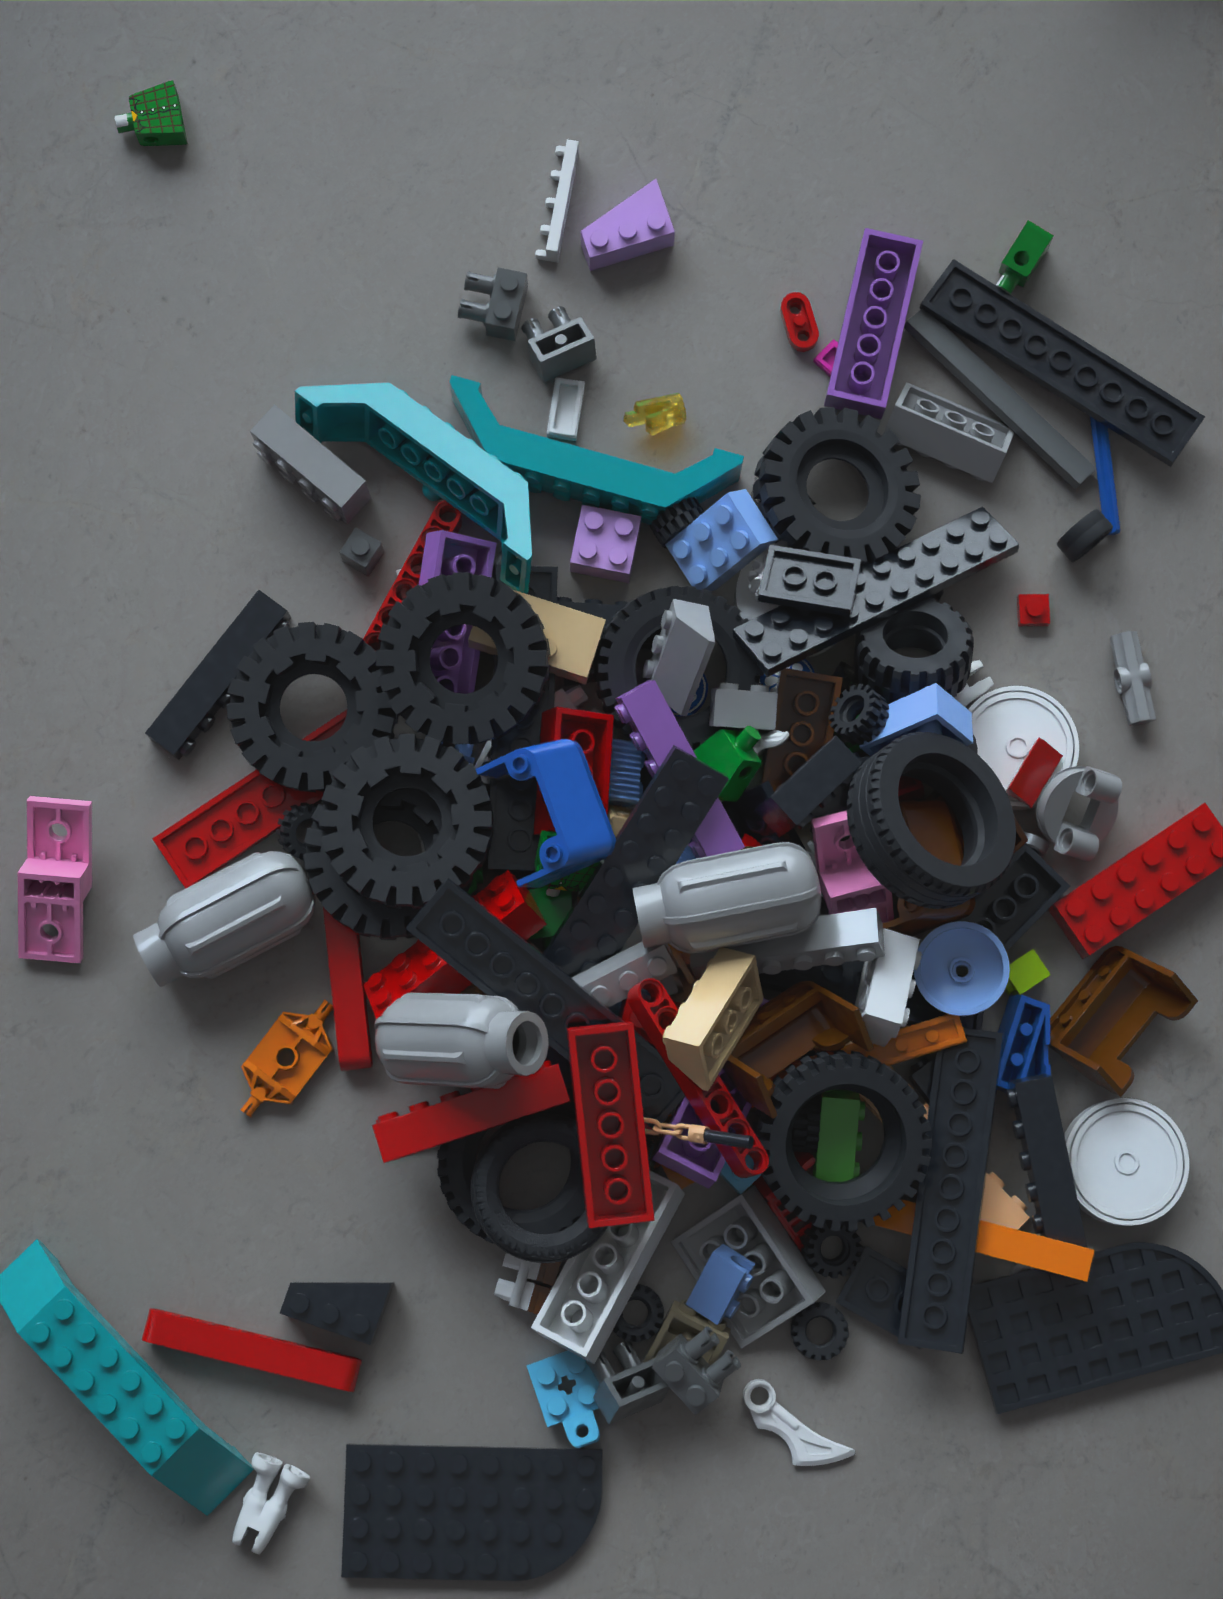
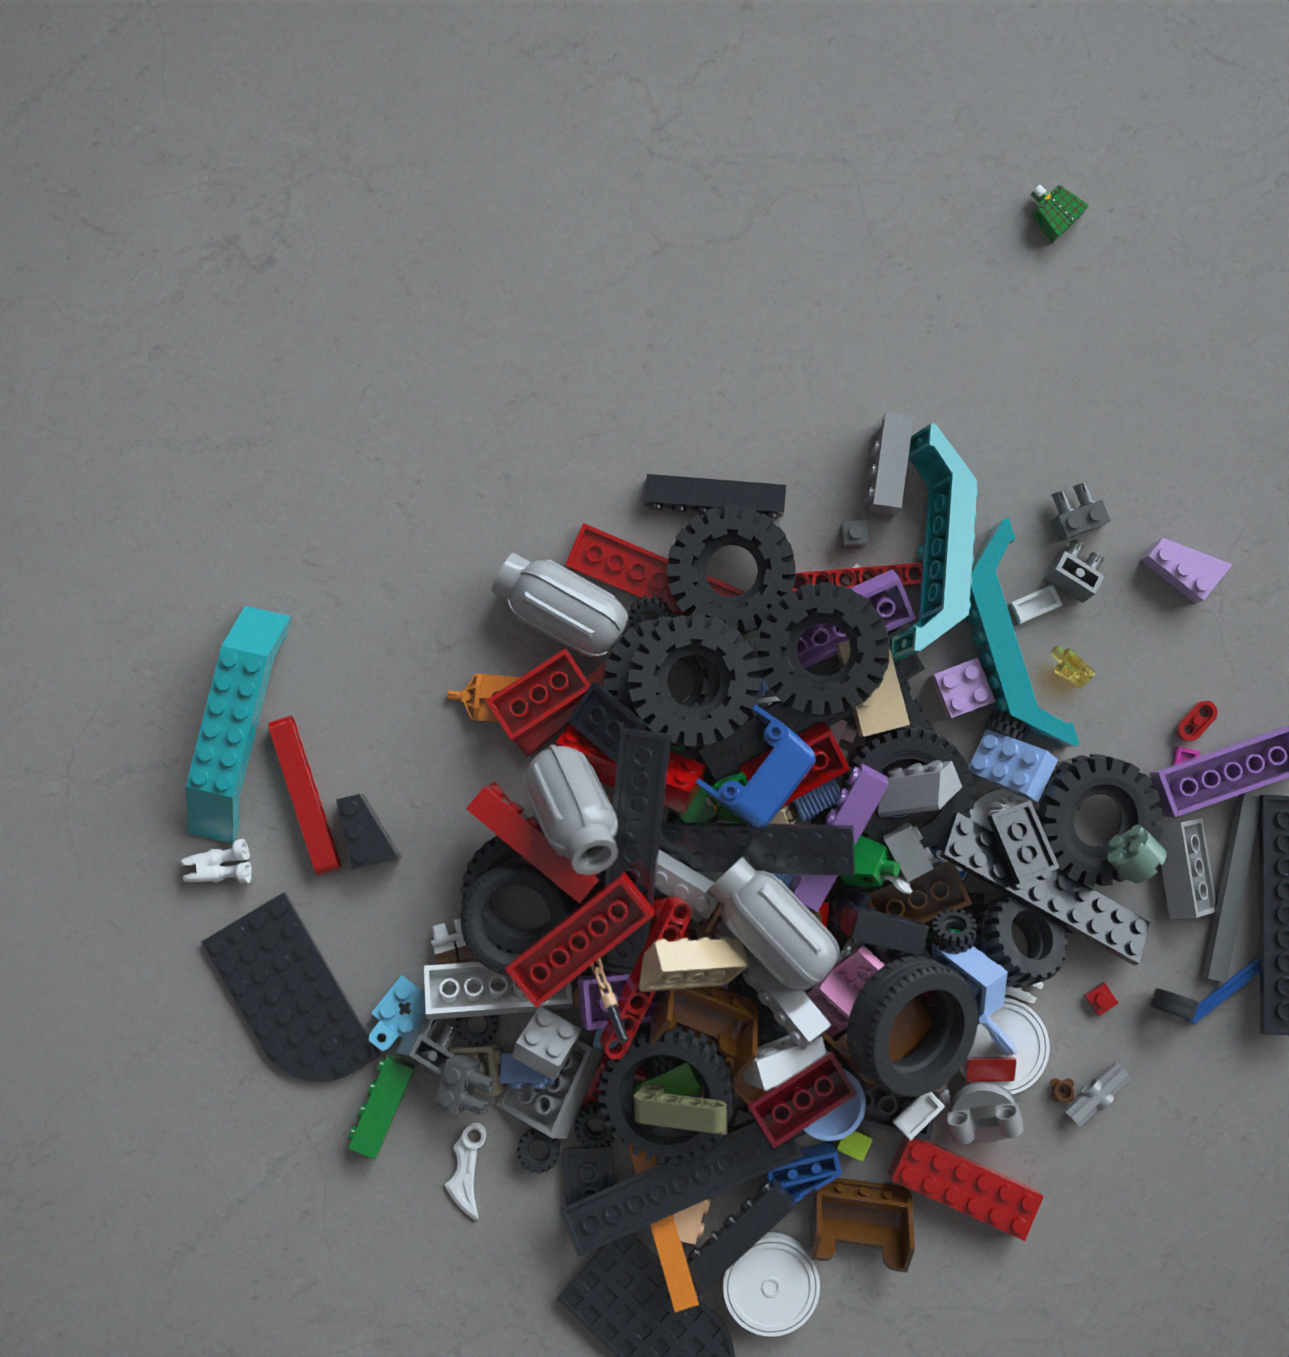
camera: 55 degrees right, 5 degrees up
(54, 879) = (518, 479): bright pink bracket -> none
(312, 1005) = (539, 695): none -> red brick
(384, 949) = (602, 717): none -> black plate
(561, 202) = (1173, 512): white hinge -> none
(660, 1481) = (381, 1107): none -> green brick
(703, 1240) = (546, 1043): none -> light grey brick
(851, 1158) = (677, 1111): none -> olive beam
(897, 471) = (1136, 854): none -> sand green brick
(937, 991) = (802, 1099): none -> dark red slope
(1004, 739) = (1001, 1038): none -> light blue piece
(1034, 879) = (918, 1114): none -> white tile
(1104, 704) = (1068, 1092): none -> reddish brown plate

